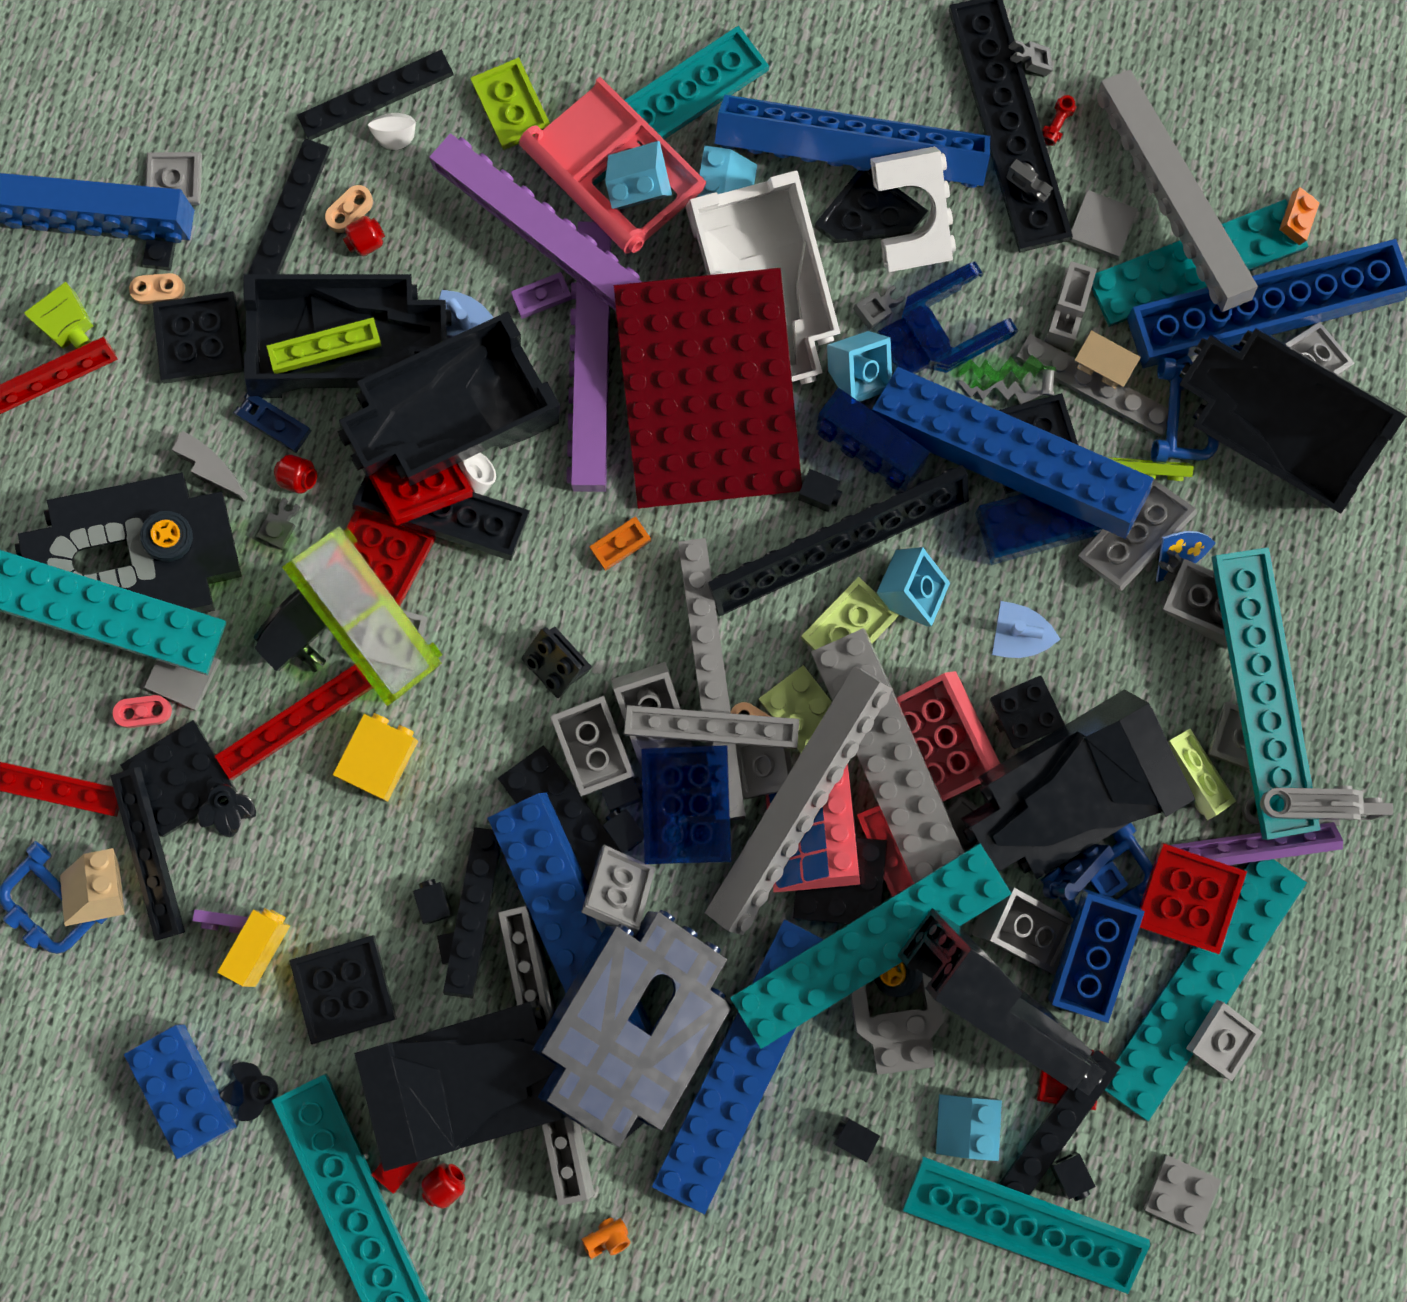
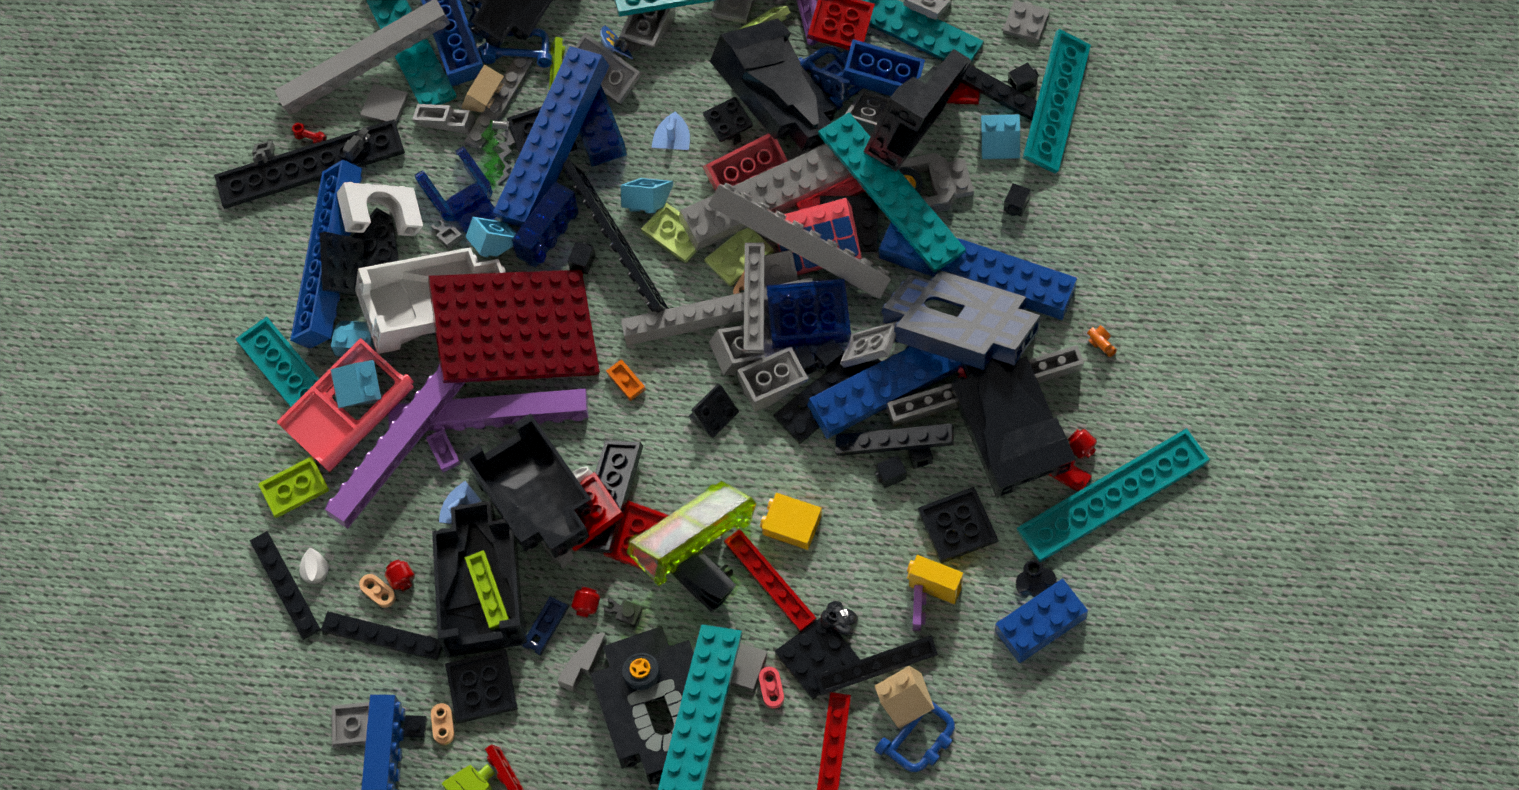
camera: 90 degrees left, 15 degrees down
(825, 155) = (340, 262): none -> black plate

